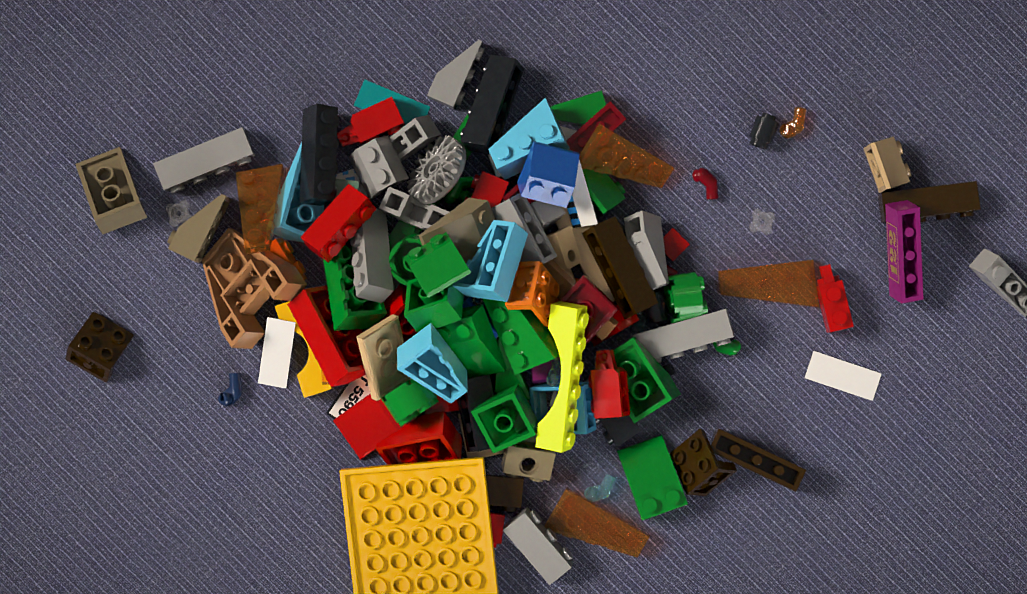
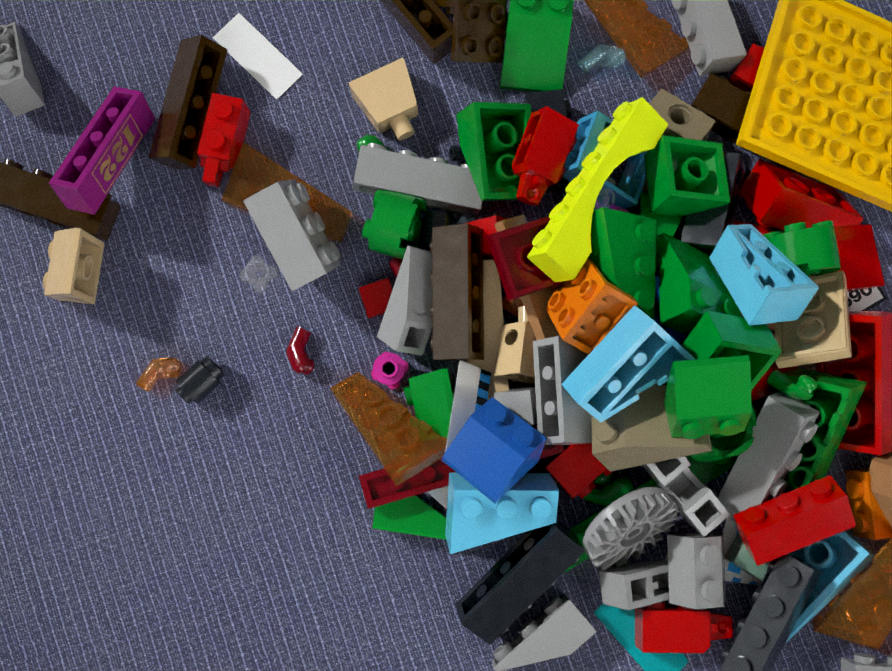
camera: 155 degrees left, 5 degrees down
(376, 305) = (801, 389): none -> green arm
(635, 205) = (393, 379): none -> dark pink brick
(734, 385) = (387, 98): none -> tan torso
(747, 255) = (293, 232): none -> light grey brick
(869, 313) = (187, 102): none -> dark brown brick

